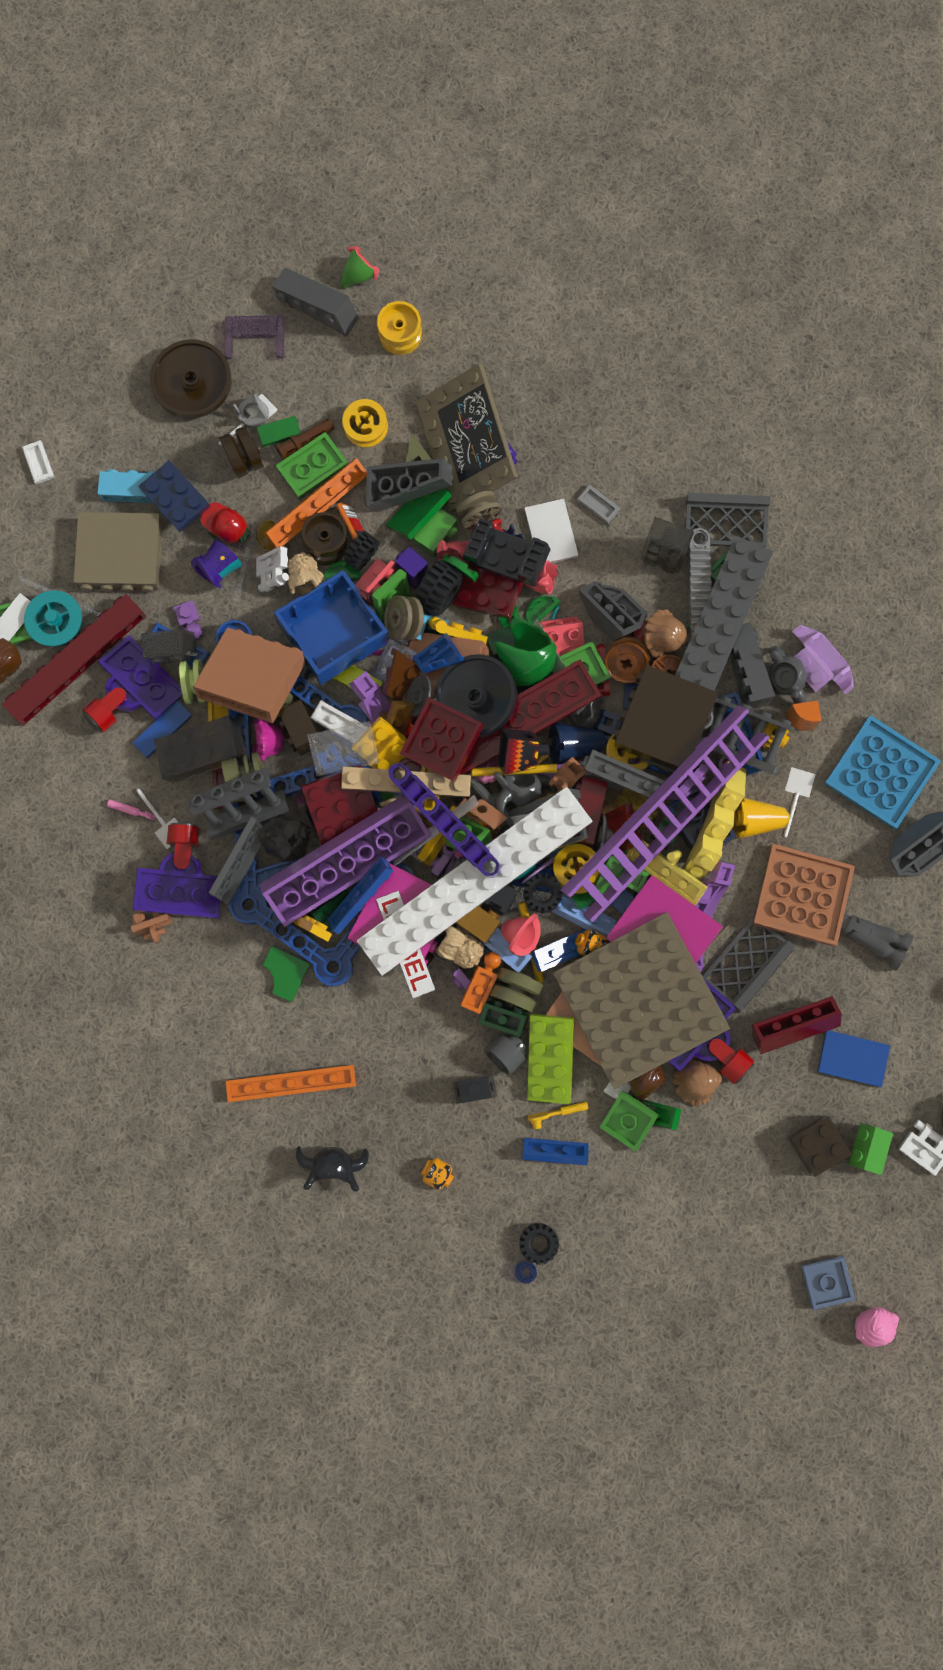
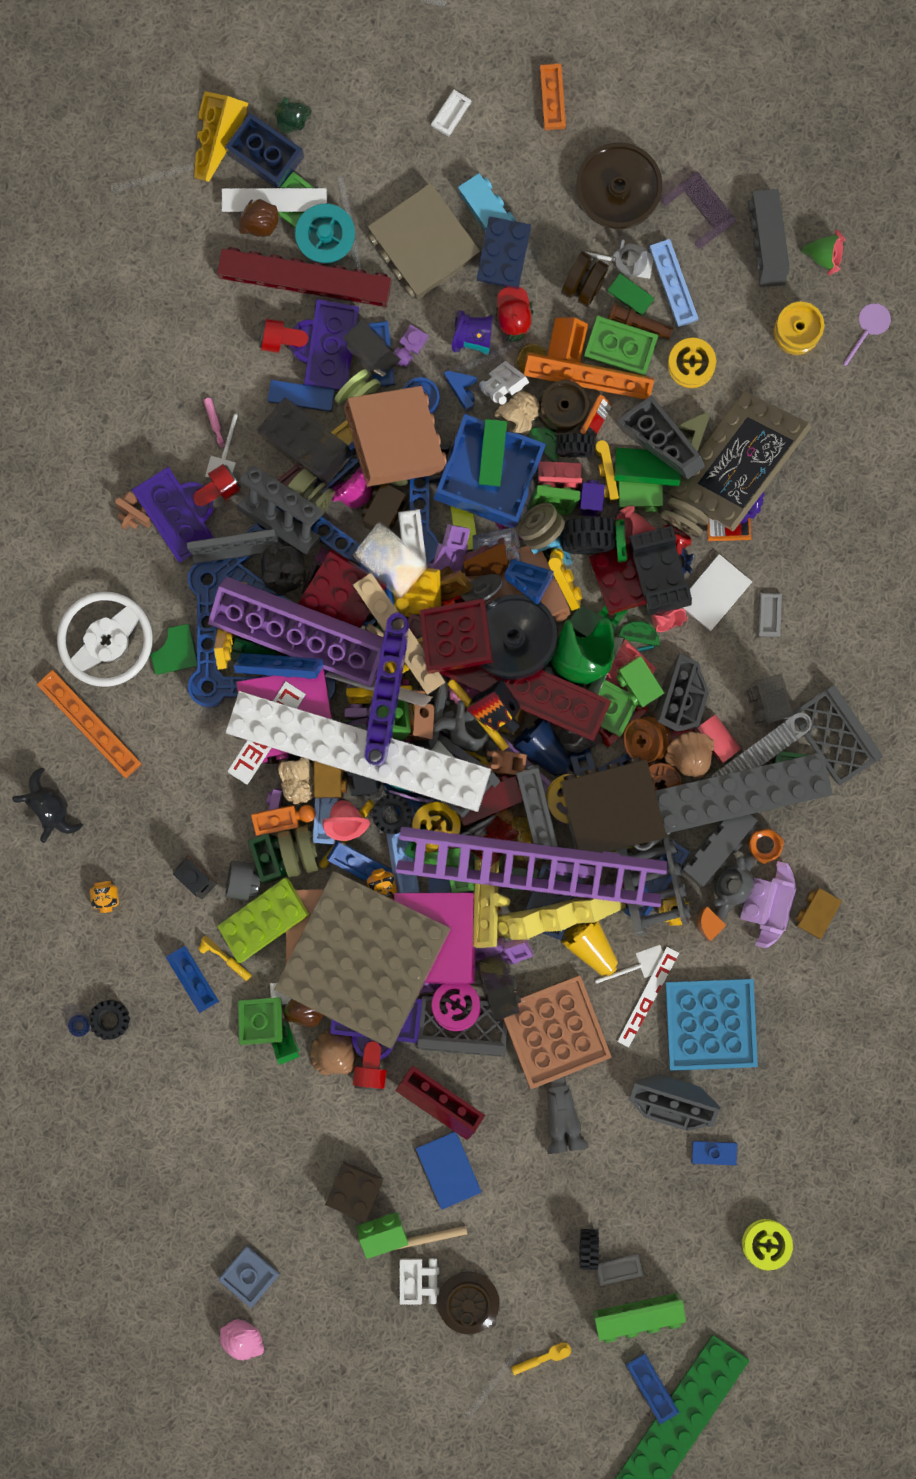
camera: 55 degrees right, 5 degrees up
(86, 379) = (552, 96): none -> orange plate
(232, 1004) = (93, 651): none -> white piece
(246, 604) = (458, 384): none -> blue slope
(275, 499) = (568, 339): none -> orange brick
(294, 394) = (673, 283): none -> light blue plate
(319, 613) = (492, 452): none -> green tile
(397, 542) = (606, 471): none -> yellow plate
(434, 274) = (873, 320): none -> lavender piece
(507, 494) = (718, 532): none -> slope
(580, 630) = (639, 682): none -> bright green brick
(676, 606) = (724, 743): none -> coral brick
(735, 972) = (445, 1020): none -> dark pink wheel
(739, 910) = (498, 986): none -> clear smoke brick
(782, 624) = (778, 845): none -> orange piece
(825, 804) = (648, 996): none -> white sticker
(853, 630) = (818, 912): none -> pearl gold brick
(900, 1105) = (436, 1236): none -> tan bar

